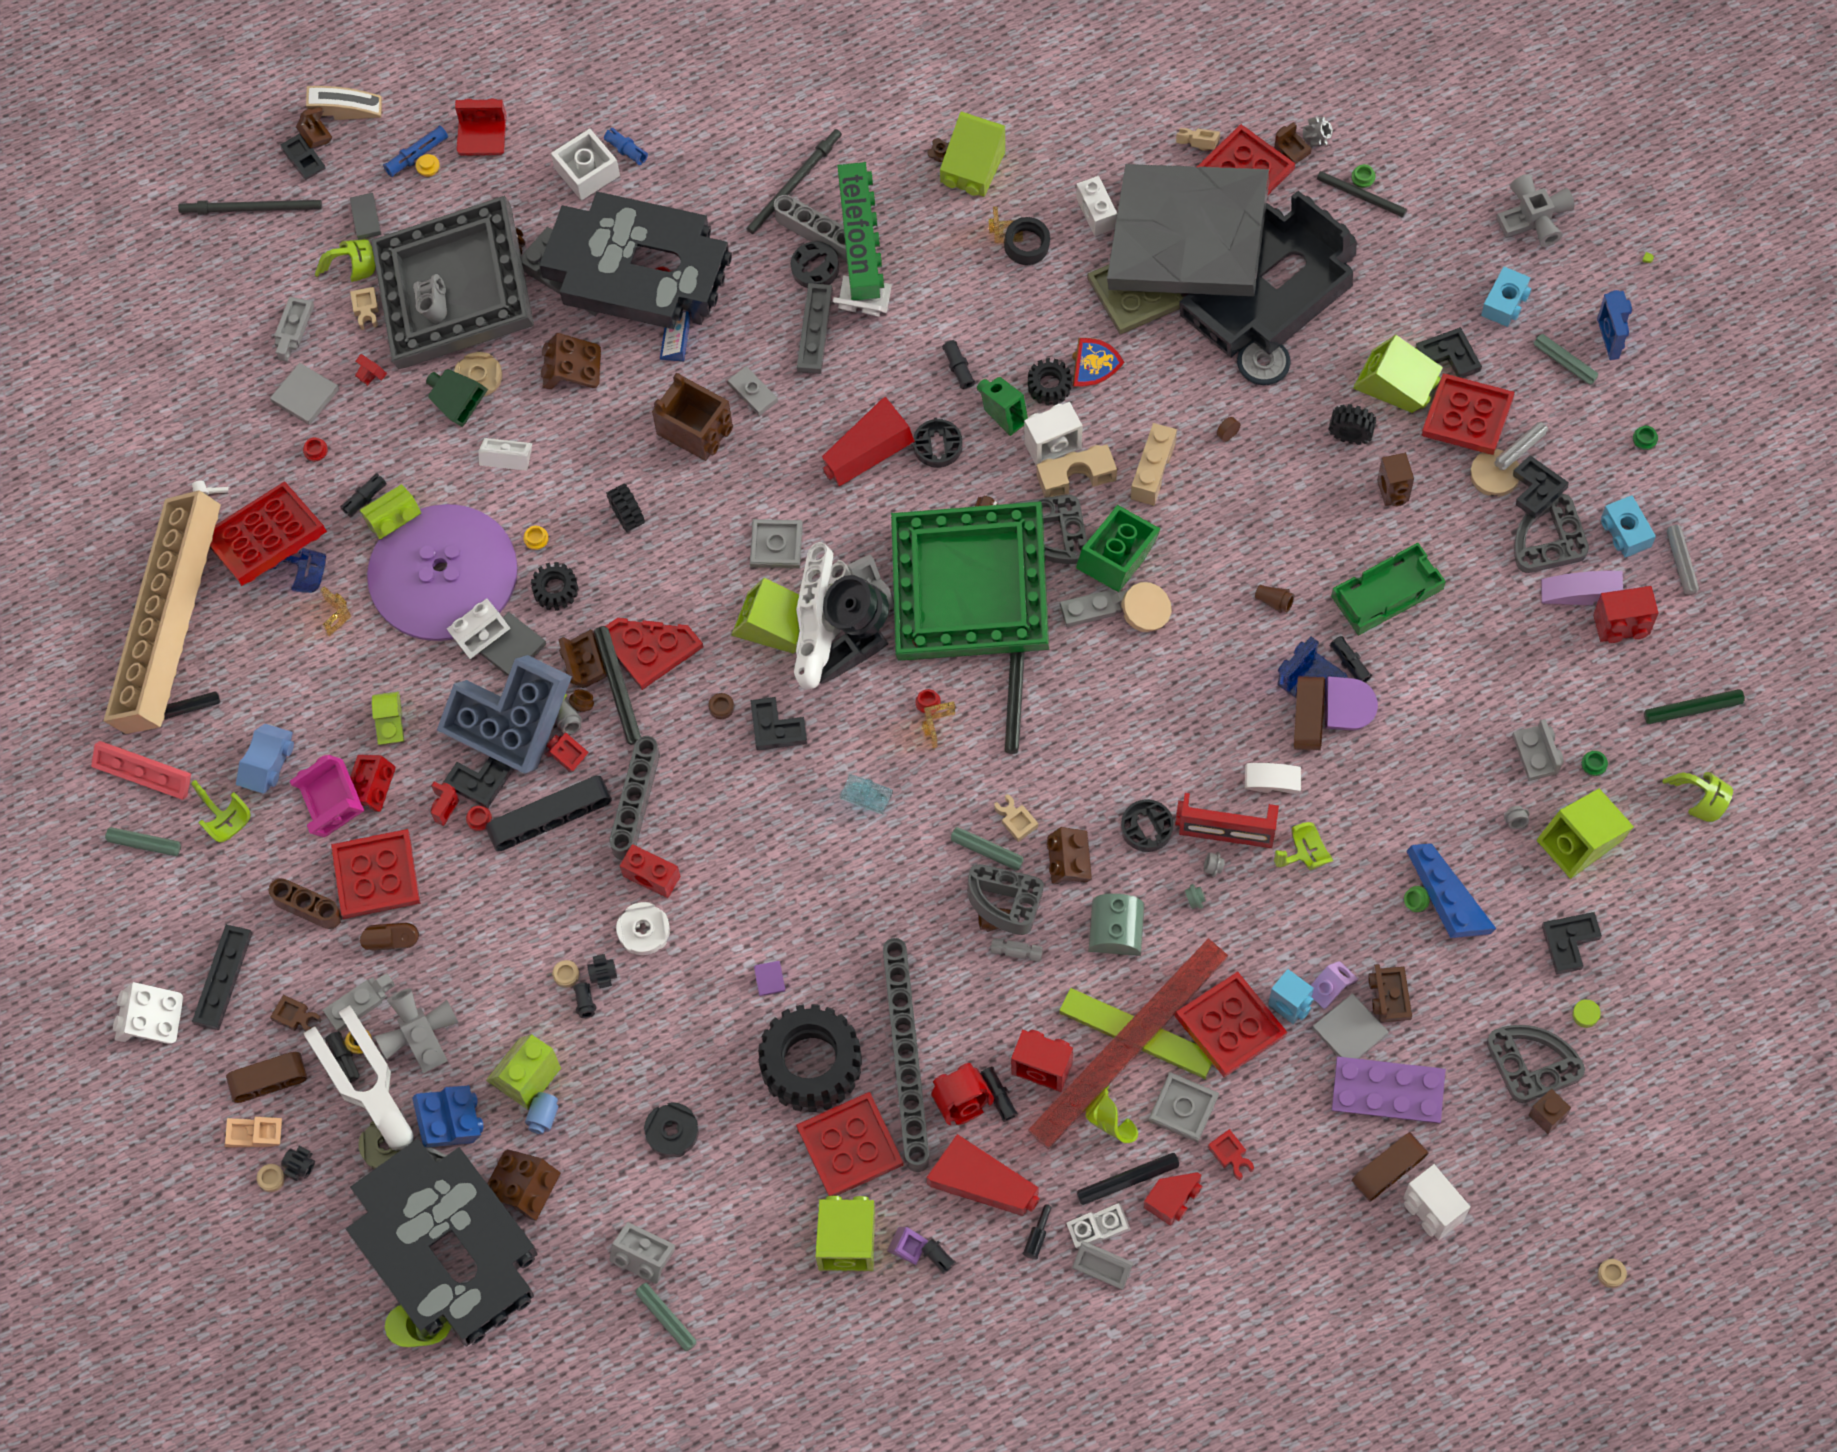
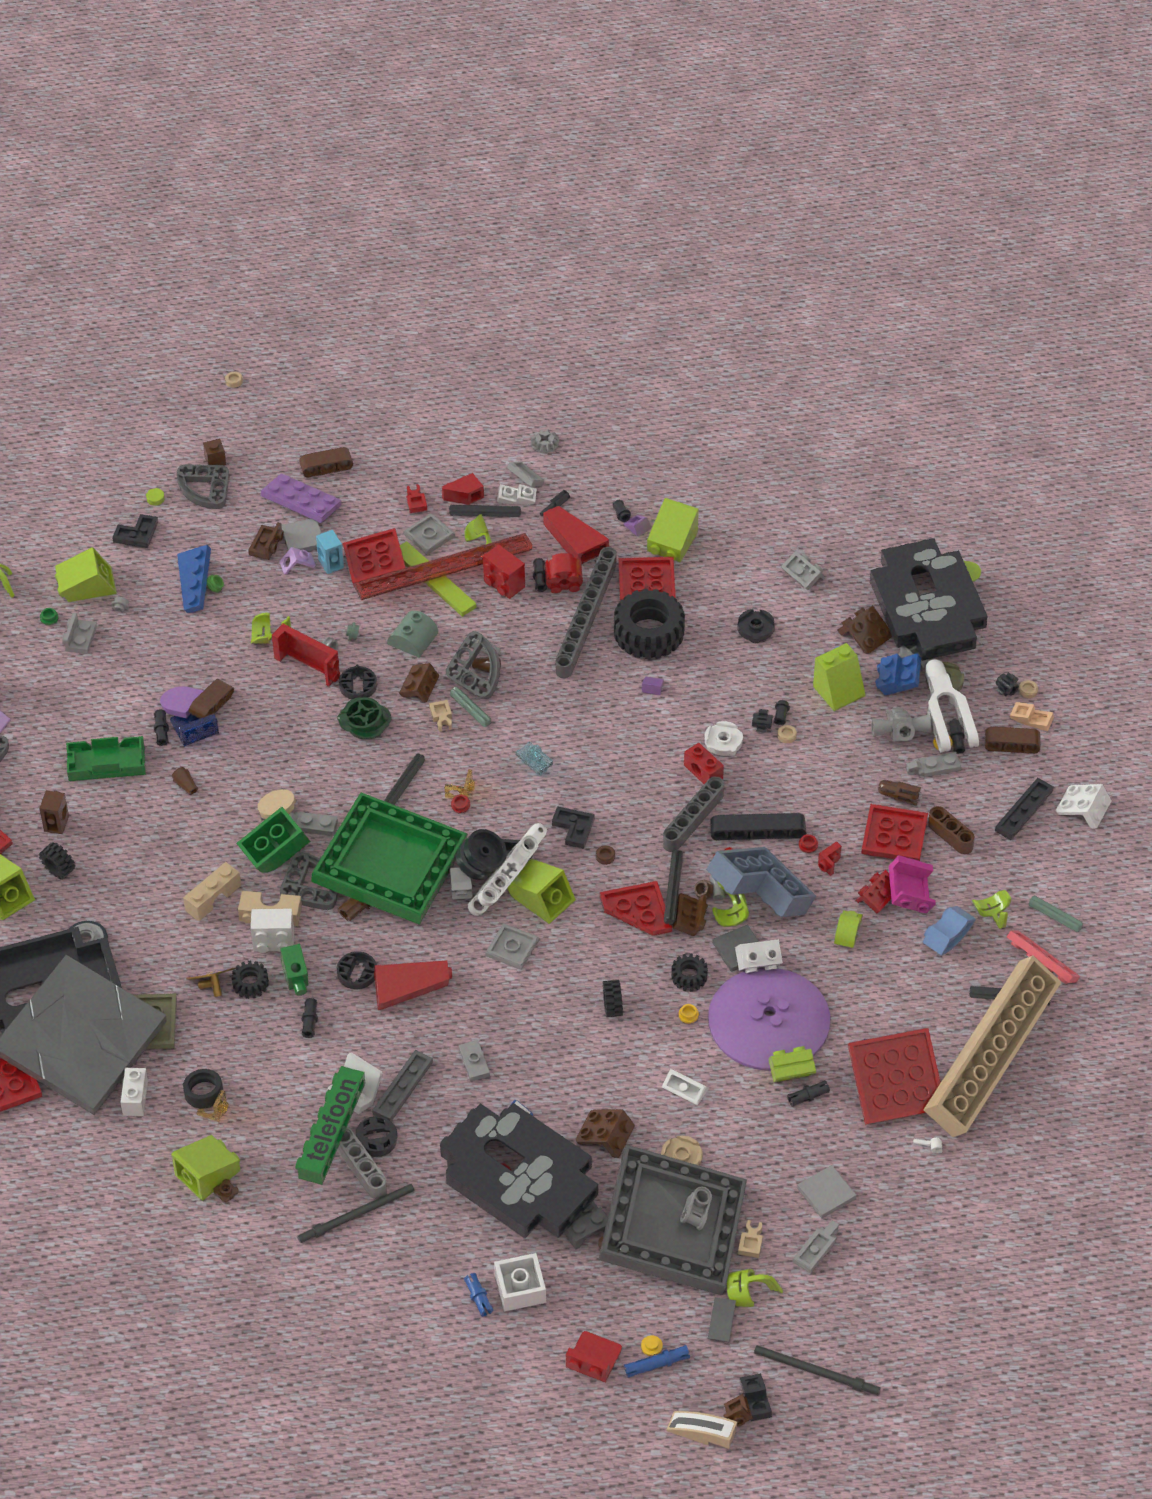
camera: 160 degrees left, 15 degrees down
(293, 1013) = (982, 770): reddish brown plate -> none
(315, 449) = (833, 1142): red plate -> none
(342, 612) = (856, 1013): clear yellow bracket -> none
(368, 370) = (766, 1184): red tile -> none
(455, 395) = (706, 1133): dark green torso -> none
(480, 786) = (802, 862): black plate -> none
(666, 1317) = (802, 537): sand green axle -> none
(692, 417) = (540, 1051): reddish brown container -> none
(1106, 779) = (364, 718): none -> dark green piece
(1114, 1356) = (545, 446): none -> light grey gear
(1201, 138) = (18, 1116): tan plate -> none
(1228, 429) = (143, 898): reddish brown tile -> none
(1271, 776) = (261, 679): white slope -> none
(1435, 1202) = (313, 428): white brick -> none

